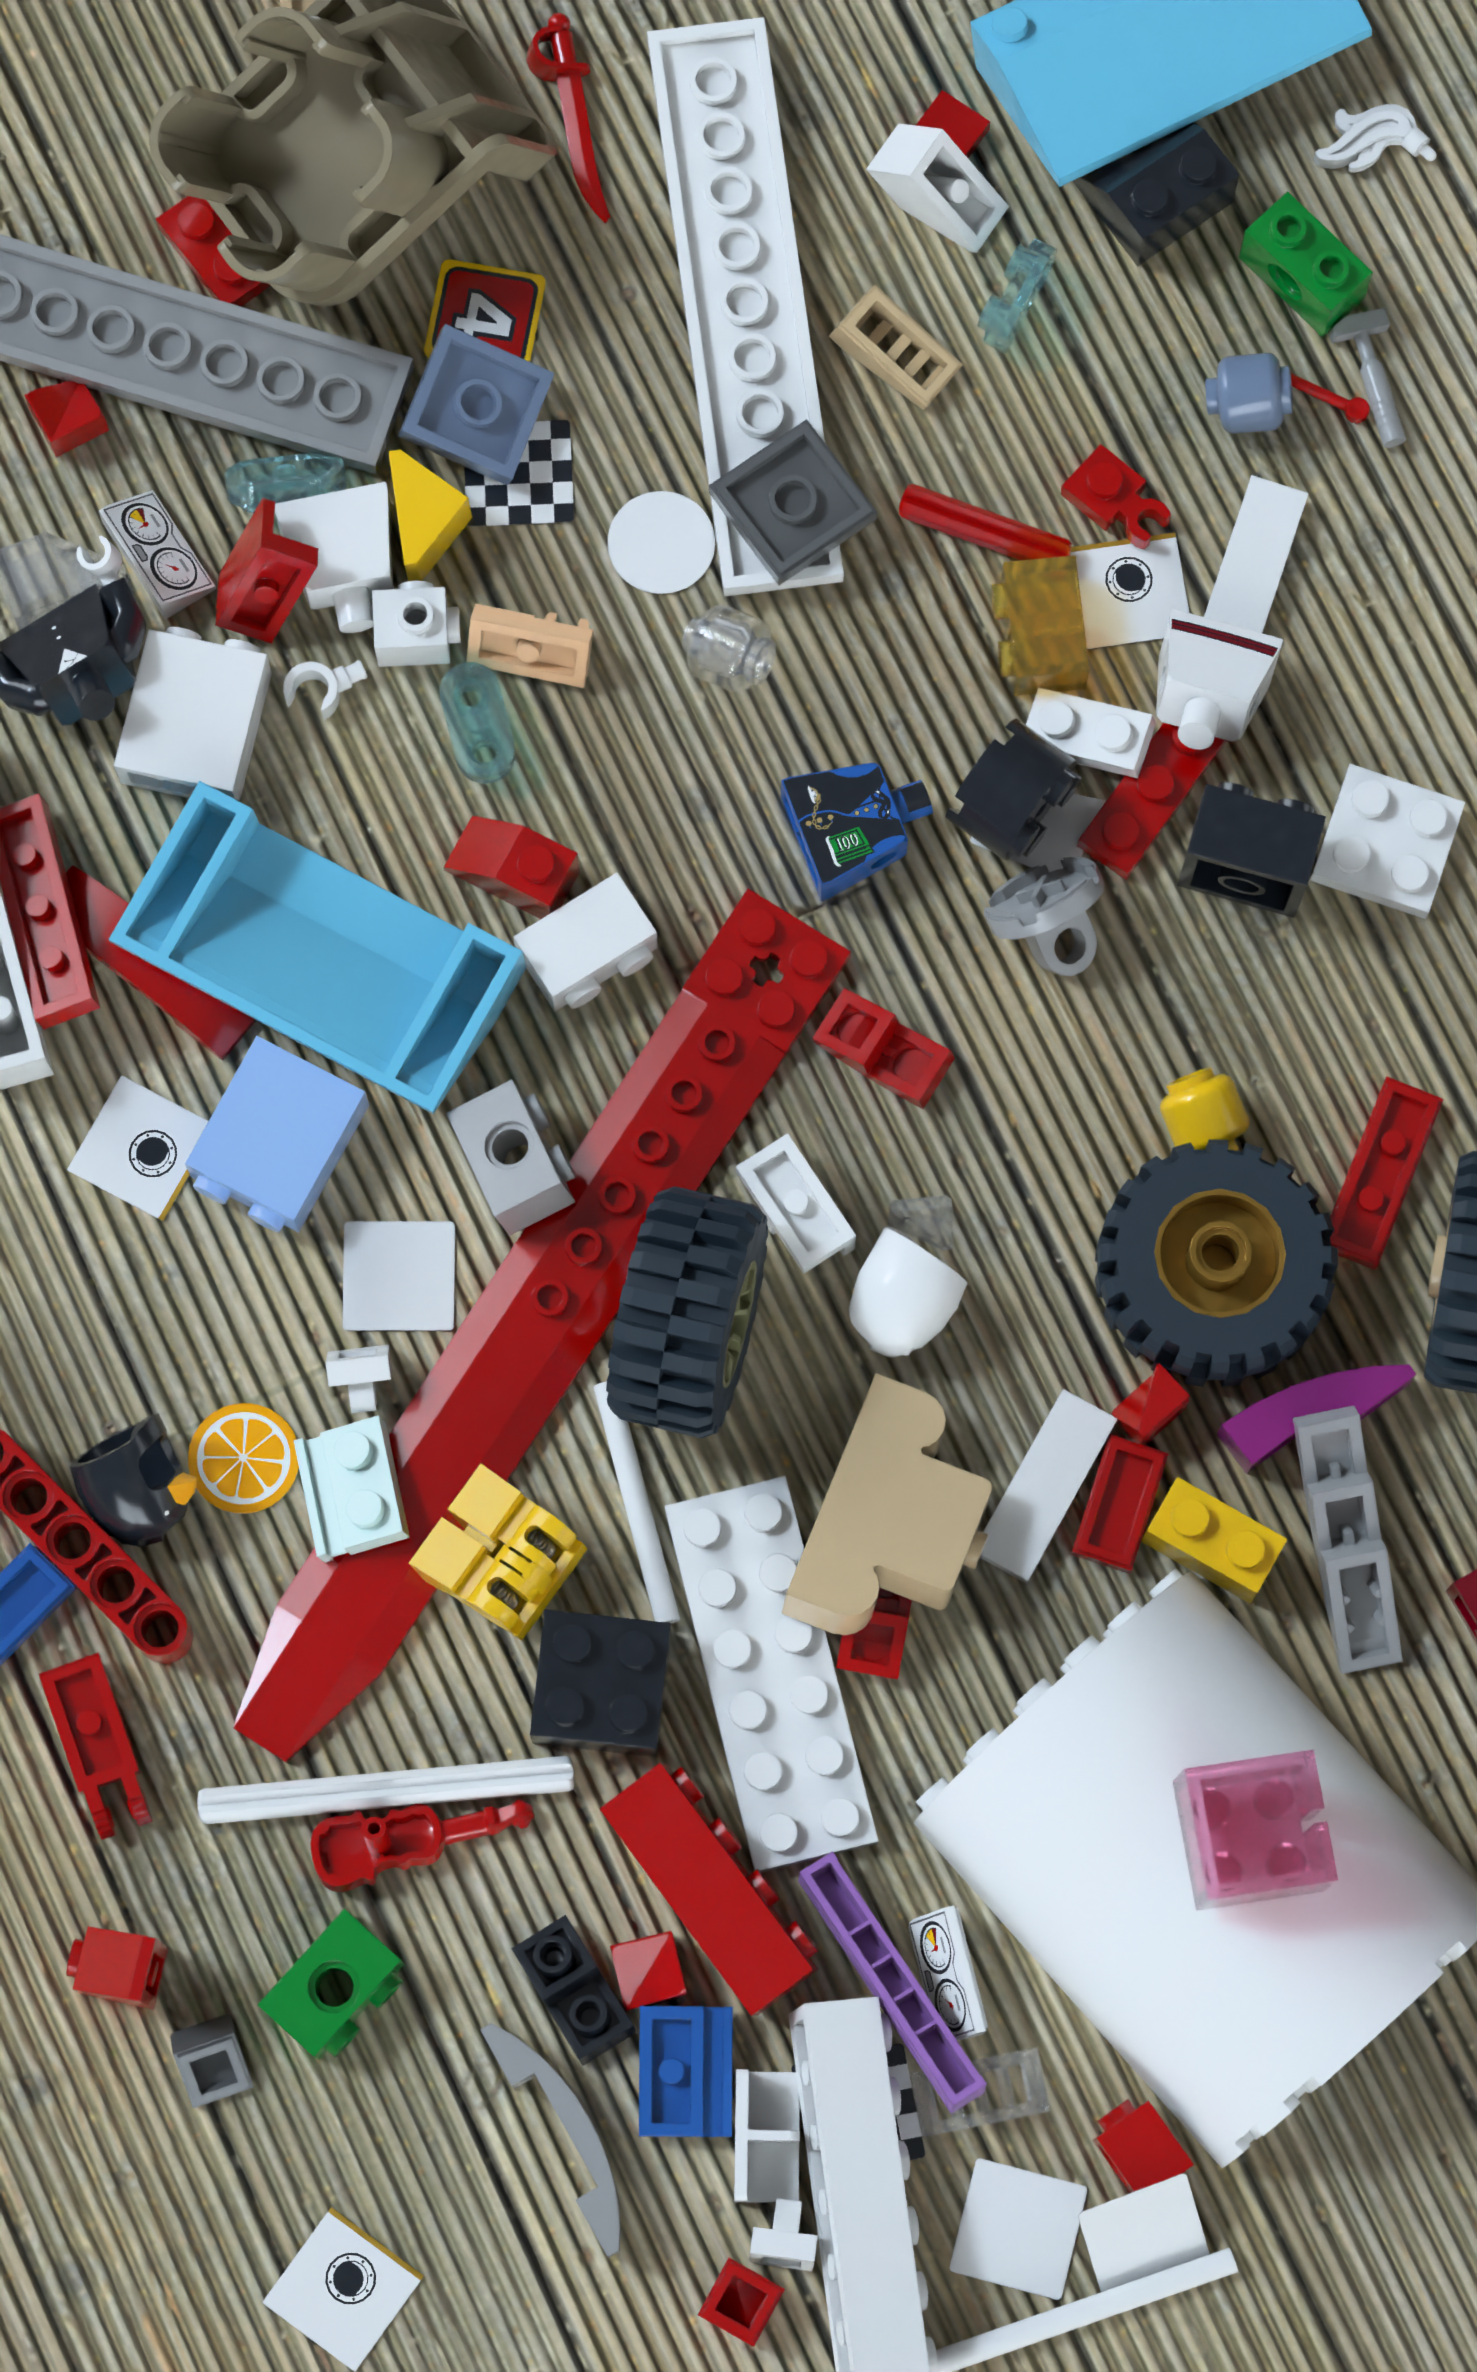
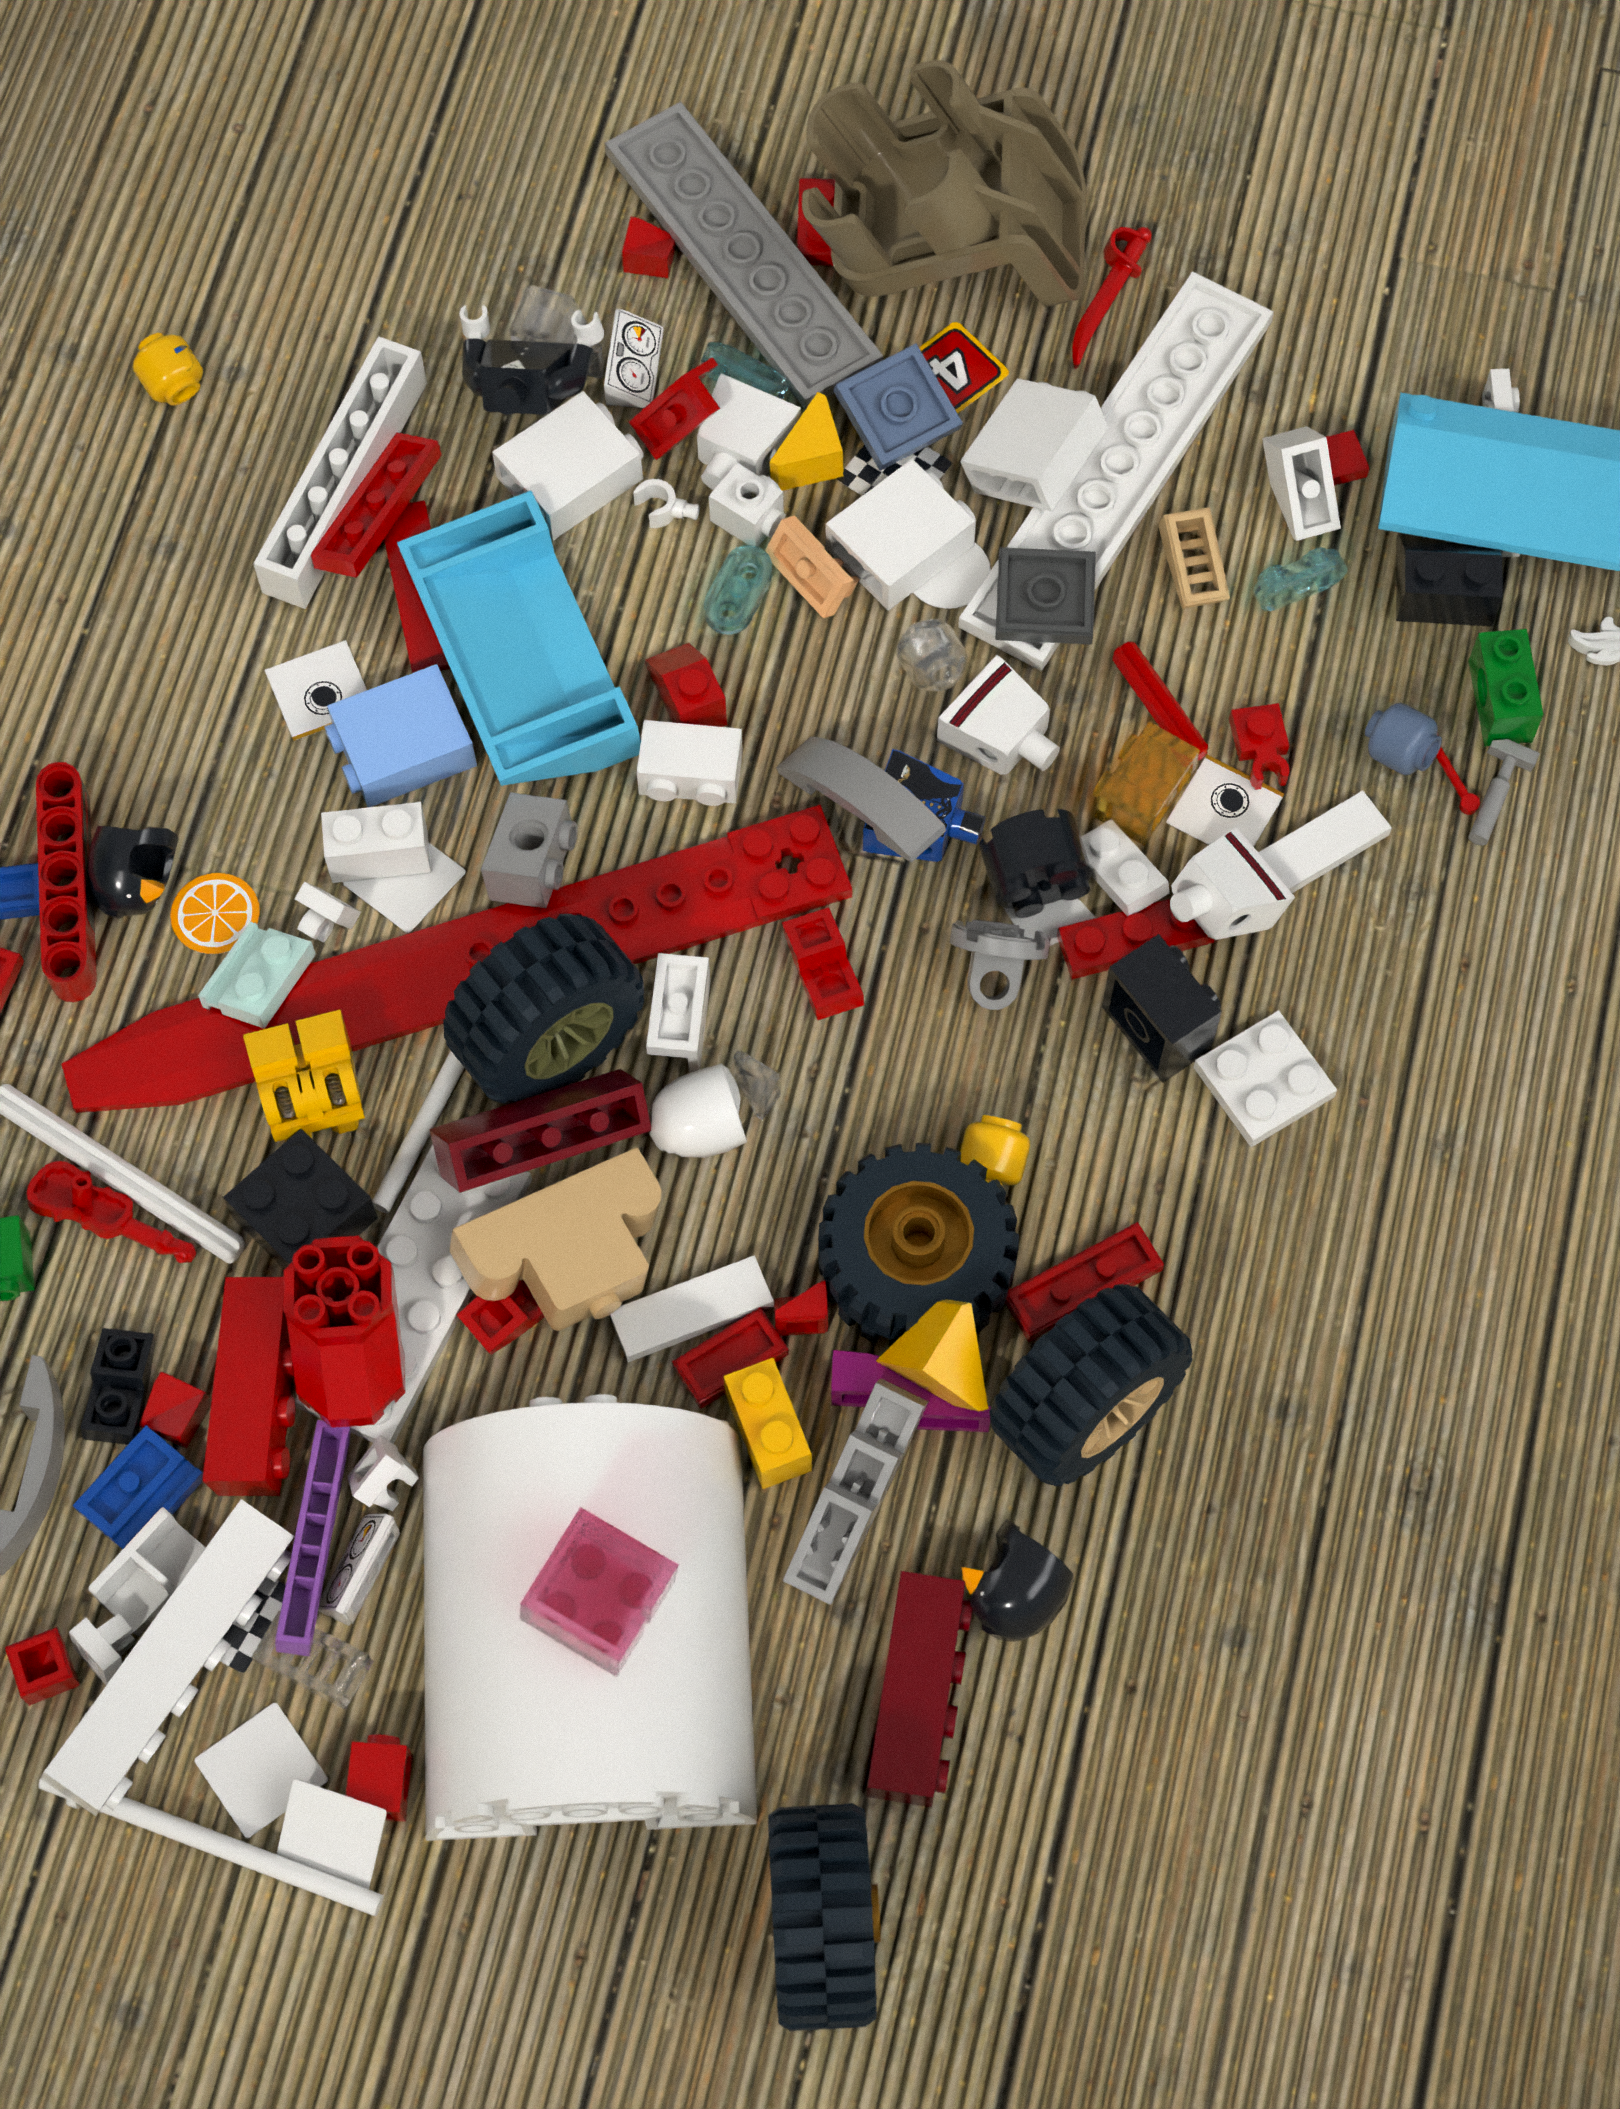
camera: 40 degrees right, 10 degrees down
(353, 1265) = (375, 842): none -> white brick
(592, 540) = (901, 533): none -> white brick
(649, 344) = (1034, 444): none -> white brick
(769, 1770) = (344, 1330): none -> red brick
(774, 1430) = (540, 1130): none -> dark red brick
(789, 847) = (866, 792): none -> light grey slope
(852, 668) = (998, 721): none -> white torso
(895, 1874) = (376, 1470): none -> white tile
(1338, 1352) = (942, 1355): none -> yellow slope

